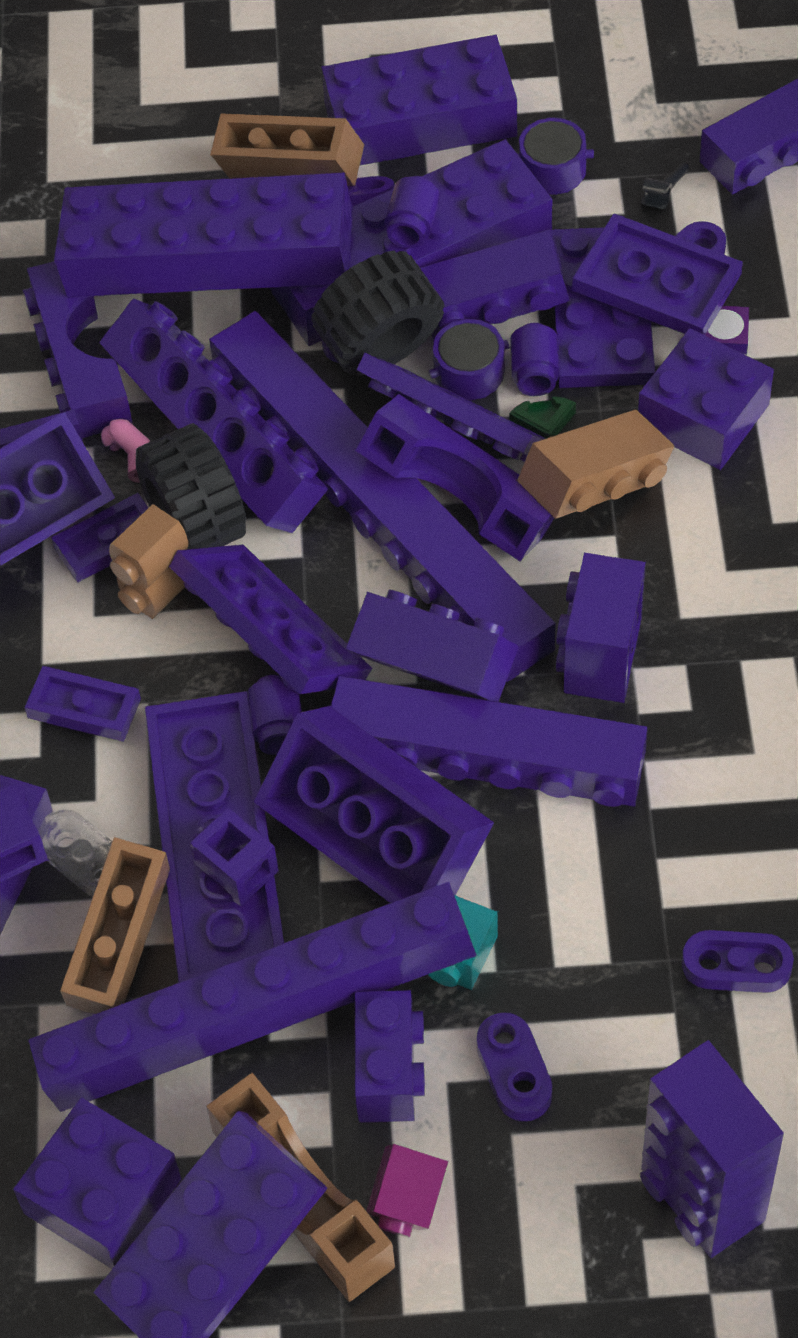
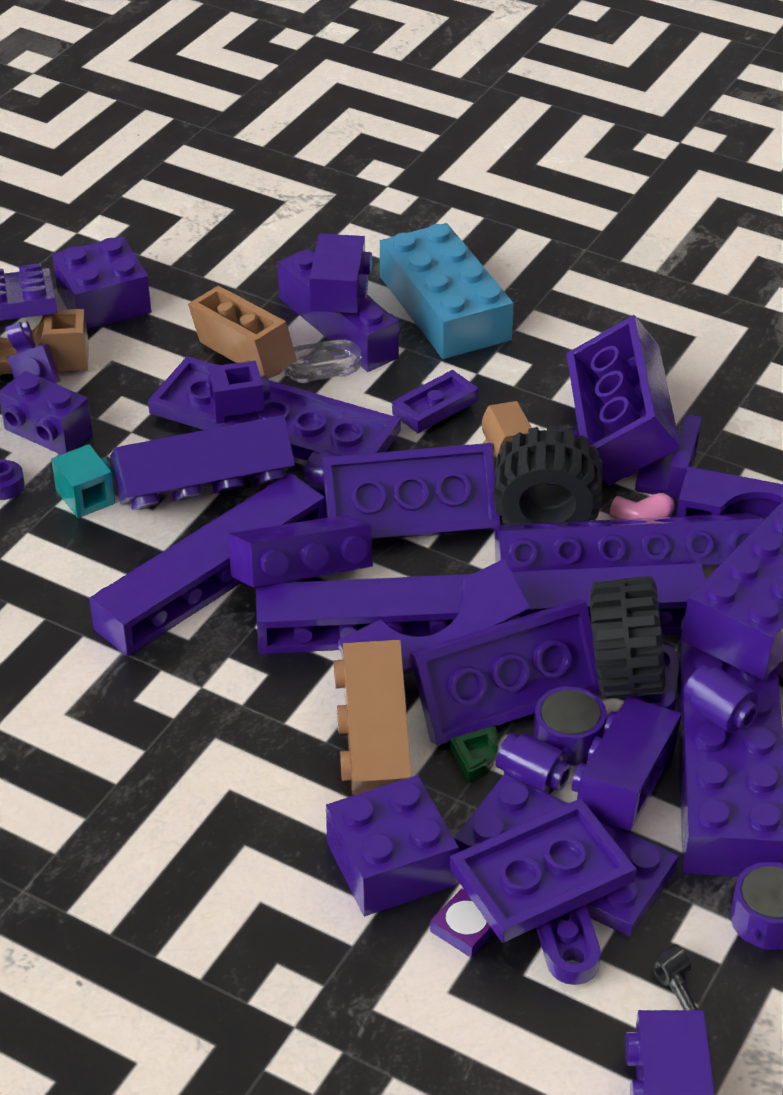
camera: 120 degrees right, 15 degrees down
(251, 997) = (126, 368): dark purple brick -> none
(318, 1128) = (29, 357): none -> dark purple plate
(601, 627) = (226, 644): dark purple brick -> none

